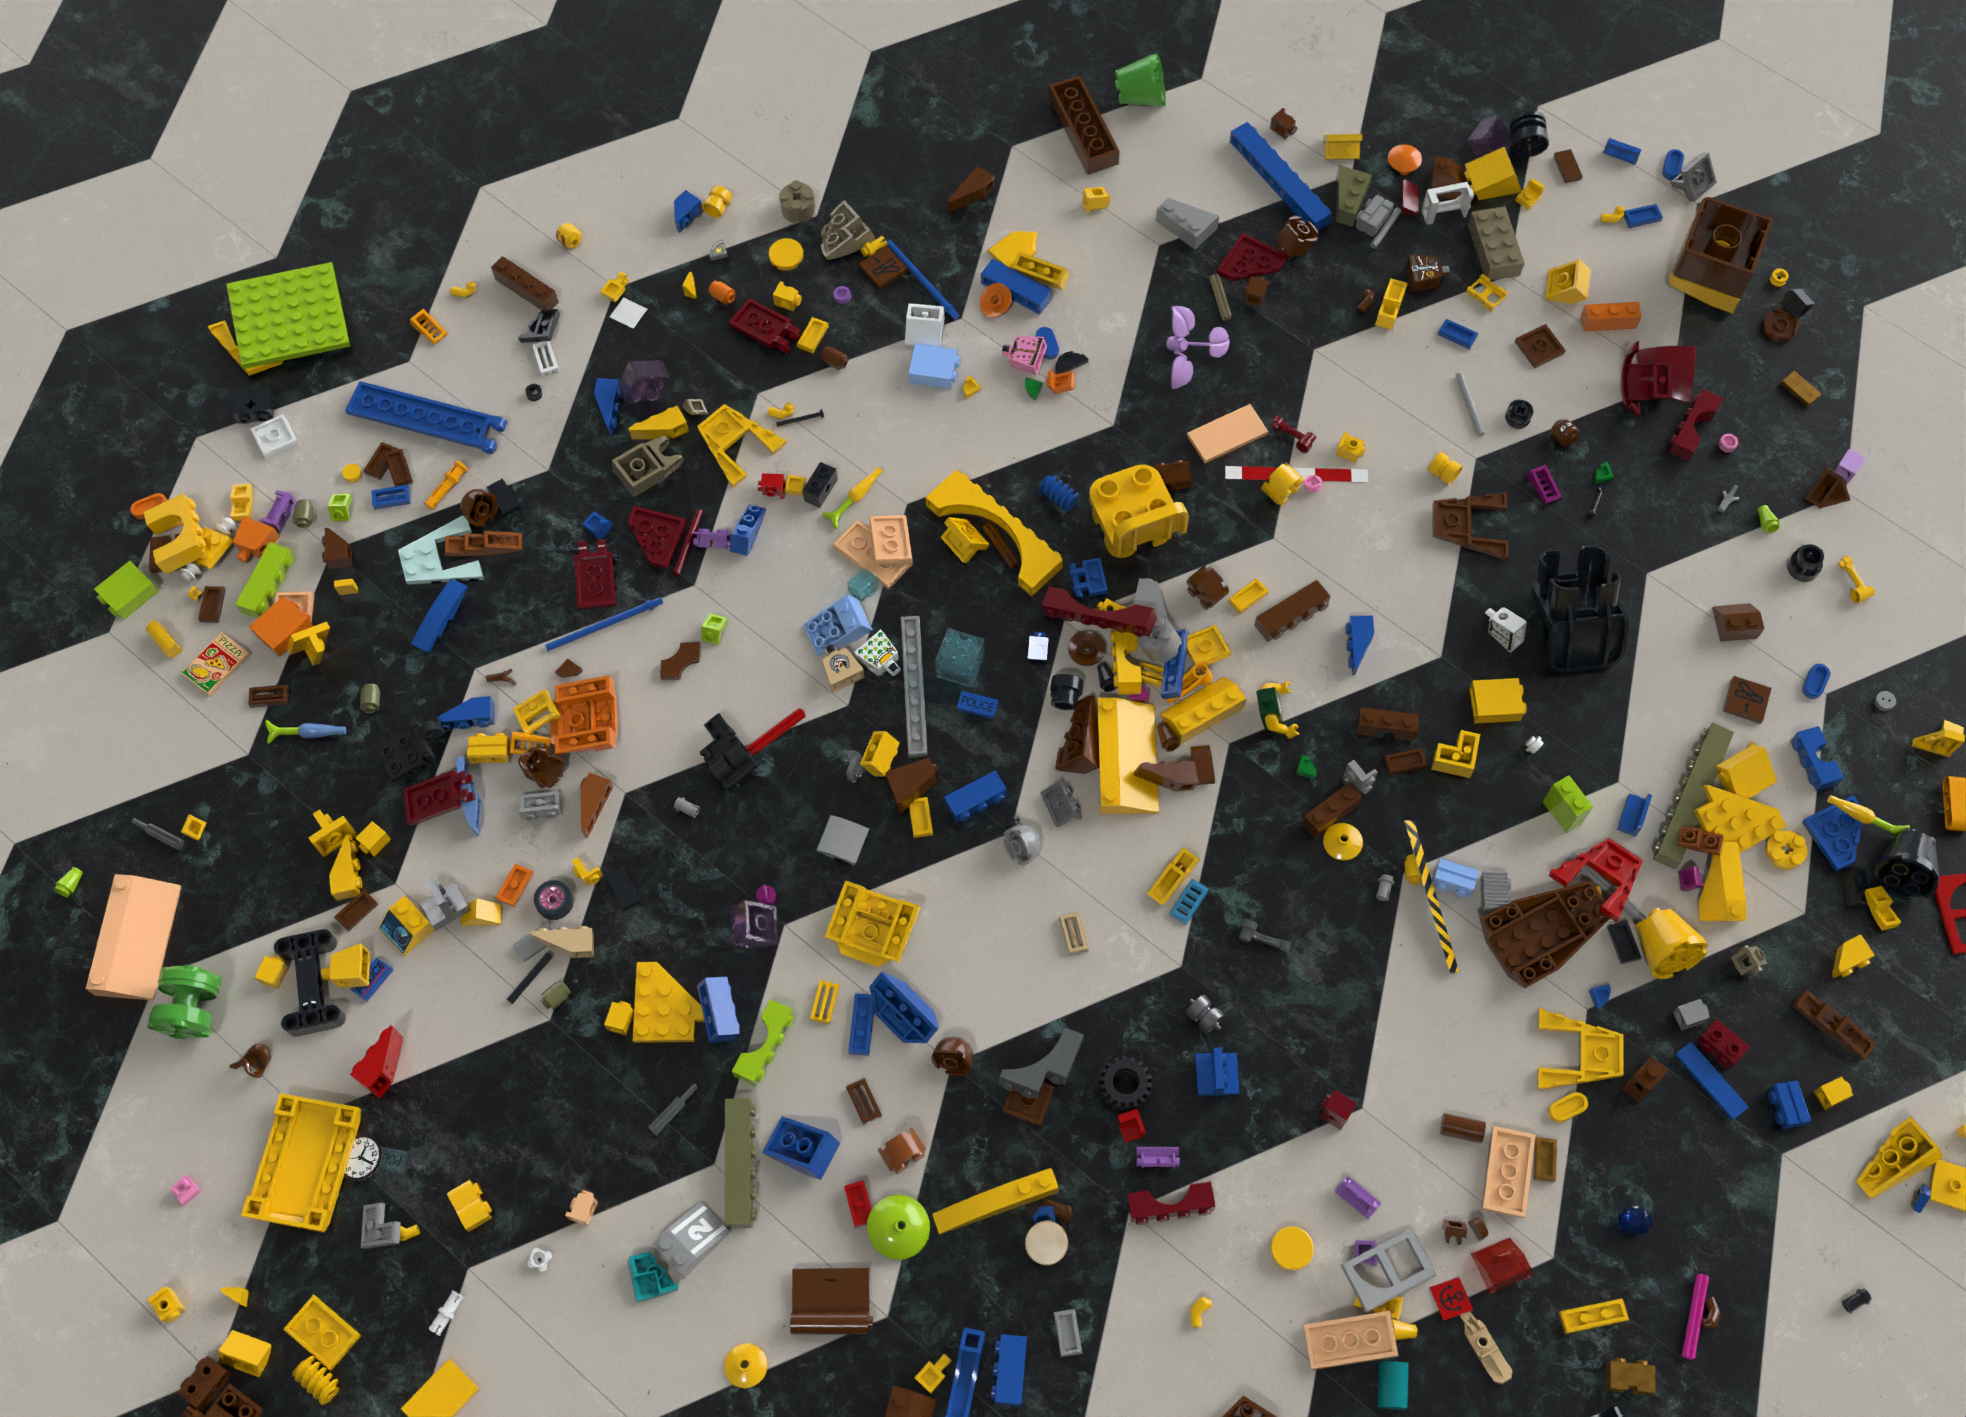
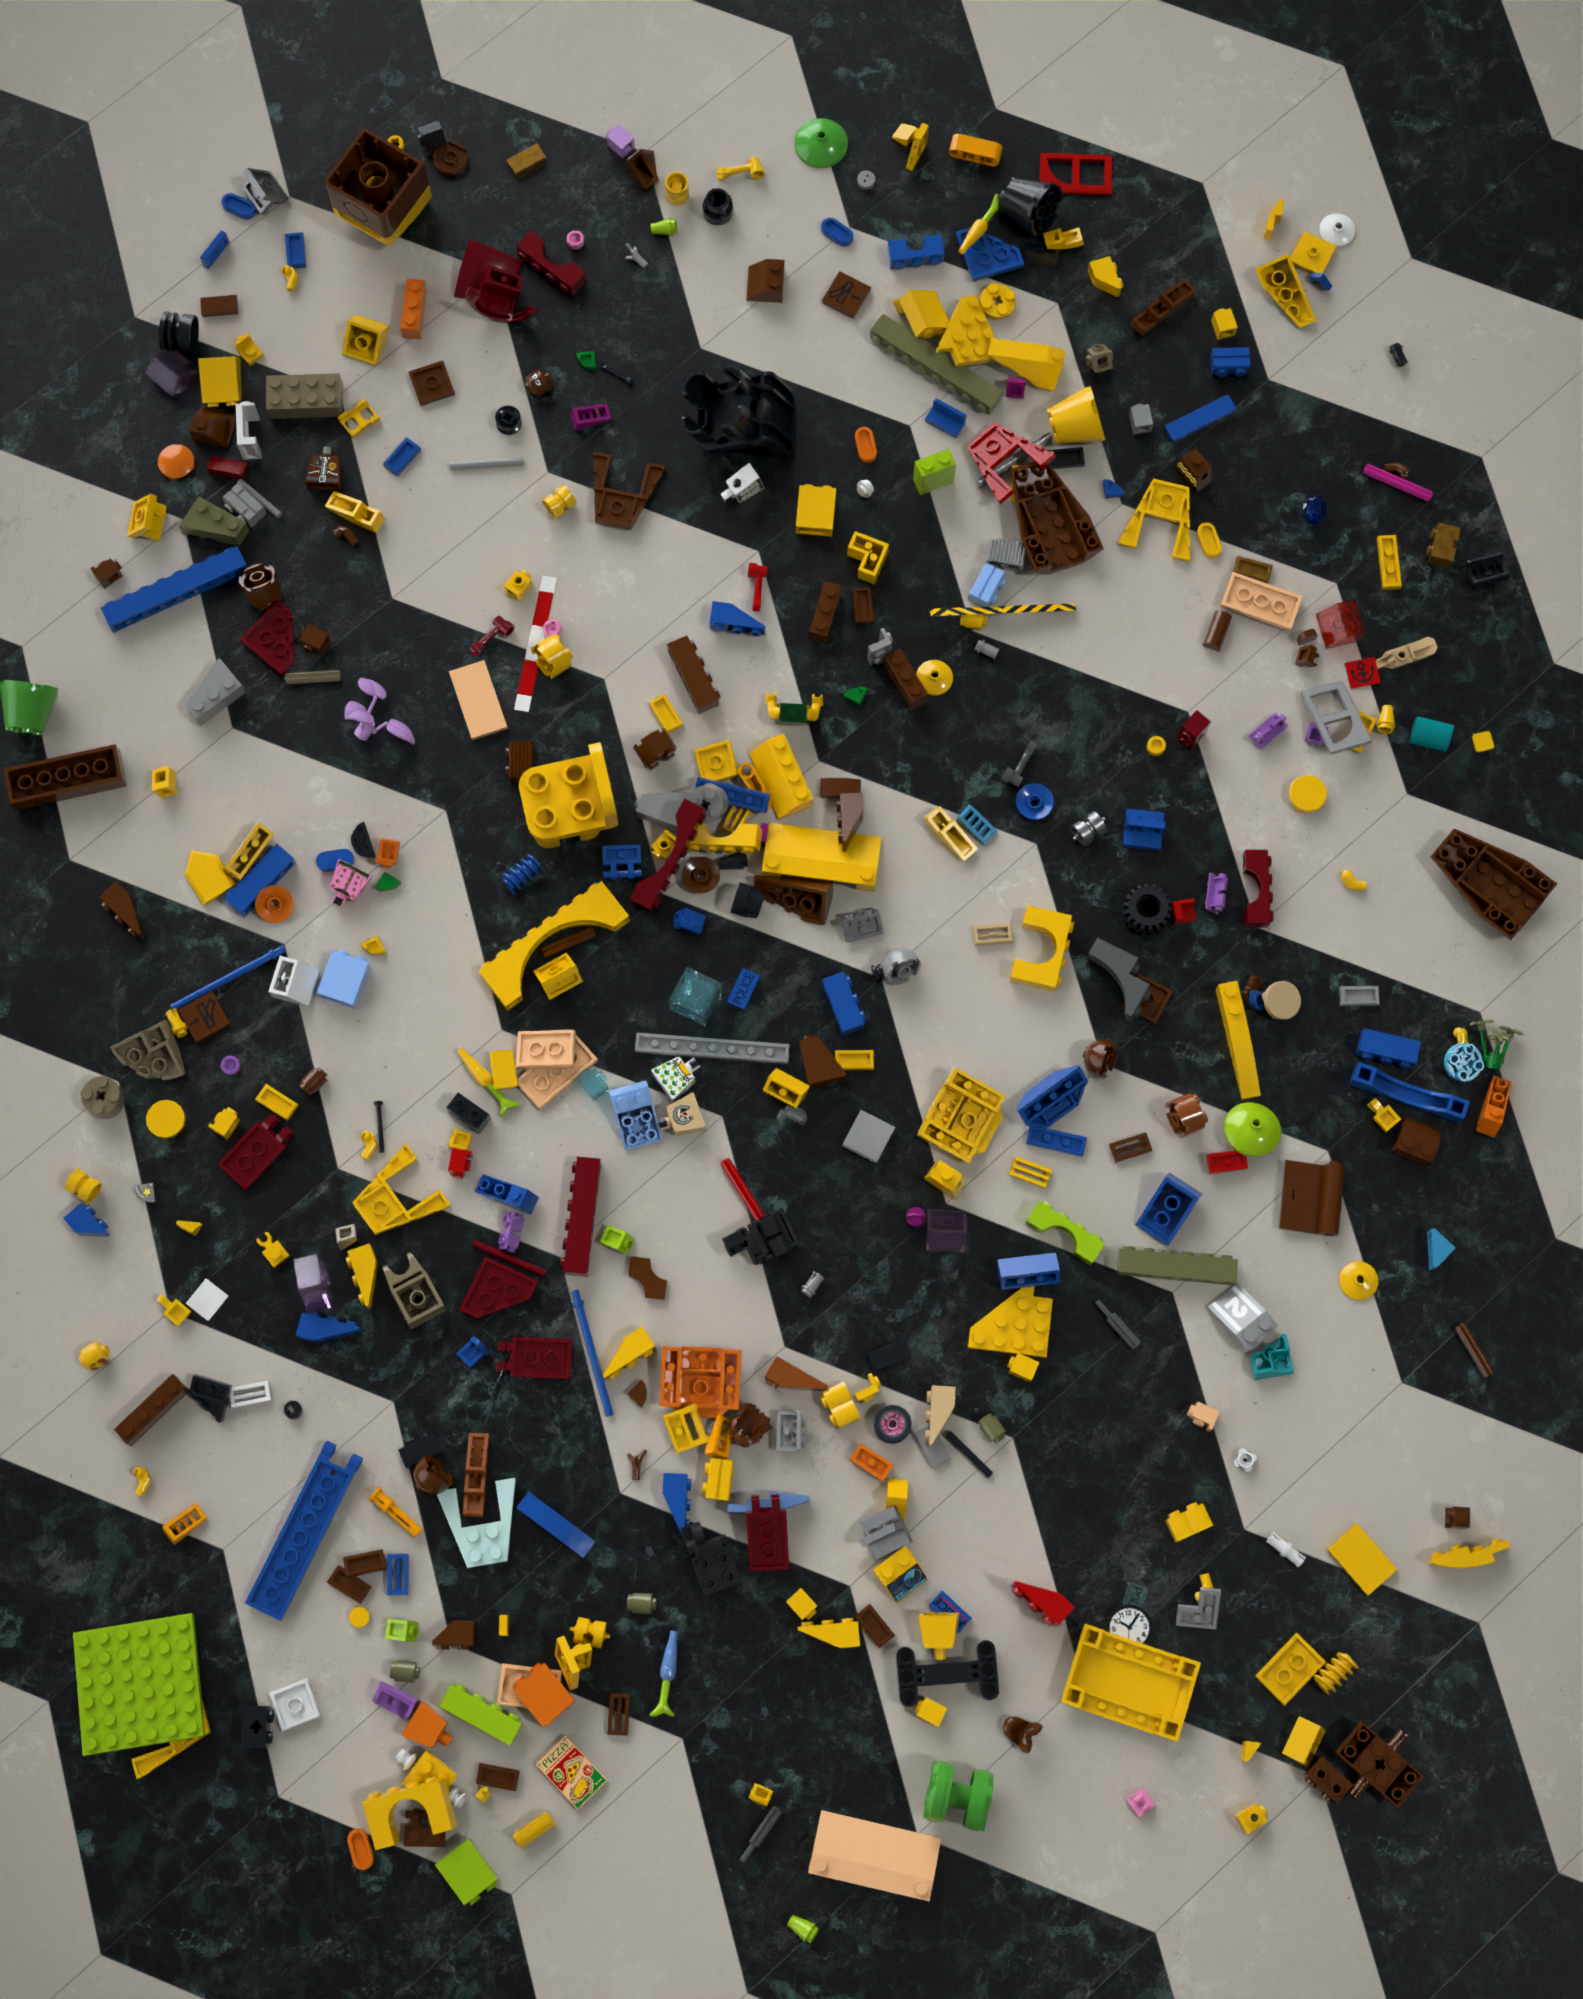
camera: 85 degrees left, 10 degrees up
(241, 501) = (375, 1742): yellow slope -> none
(331, 834) = (785, 1647): yellow bracket -> none
(340, 660) = (590, 1632): none -> yellow wheel
(567, 848) = (840, 1405): none -> yellow brick
(610, 655) = (632, 1348): none -> yellow slope
(676, 355) = (274, 1251): none -> yellow plate
(722, 292) = (205, 1192): orange brick -> none
(732, 594) = (582, 1216): none -> dark red brick
(805, 915) = (945, 1179): none -> yellow torso
(865, 507) = (503, 1070): none -> yellow slope
(1038, 993) = (1046, 974): none -> yellow arch
(1168, 738) = (806, 815): reddish brown cone -> none
(1224, 946) = (1037, 793): none -> blue dish
(1314, 1077) = (1156, 746): none -> yellow tile
(1351, 1340) = (1393, 759): light nougat plate -> none
(1416, 657) = (757, 572): none -> red brick
(1583, 740) = (865, 445): none -> orange tile
(1700, 841) = (986, 368): dark orange slope -> none
(1722, 1044) = (1170, 400): dark red brick -> none
(1813, 522) = (677, 188): none -> yellow wheel
(1907, 659) = (821, 151): none -> bright green dish

